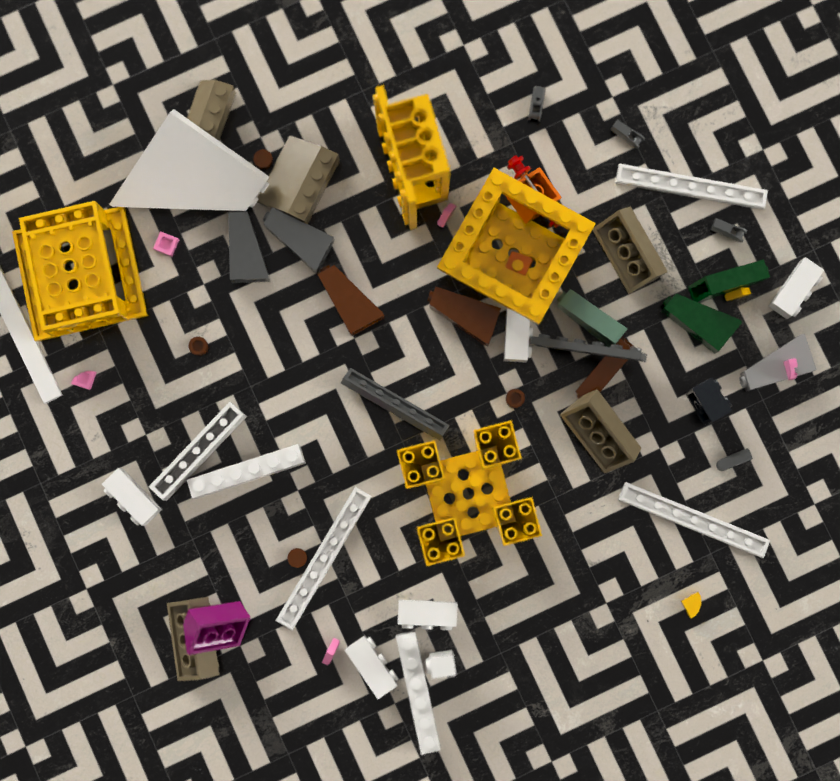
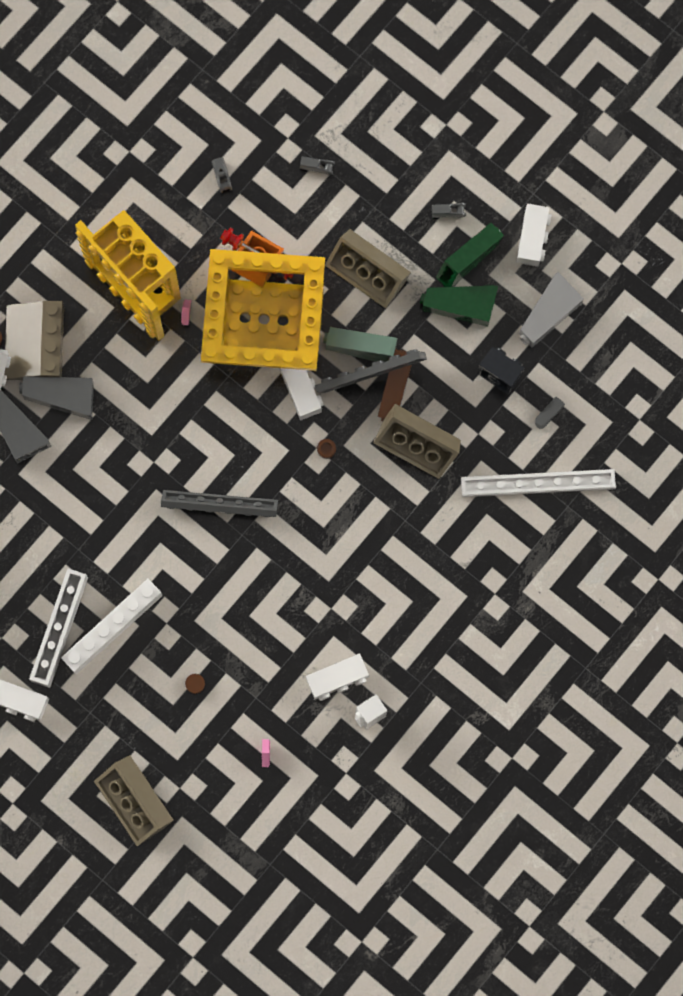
camera: 30 degrees left, 5 degrees down
(198, 346) = (12, 534): reddish brown tile -> none
(215, 627) = (150, 776): magenta slope -> none
(323, 558) = (219, 673): white tile -> none
(349, 301) = (136, 431): reddish brown slope -> none
(372, 666) = (309, 747): white brick -> none
(418, 692) = (361, 750): white brick -> none
(468, 314) = (245, 392): reddish brown slope -> none
(494, 447) = (328, 499): yellow slope -> none
(527, 261) = (279, 320): orange slope -> none
(691, 186) = (396, 186): white tile -> none
(692, 604) = (572, 558): yellow tile -> none
(738, 293) = (483, 263): yellow tile -> none
(789, 366) = (557, 305): bright pink tile -> none

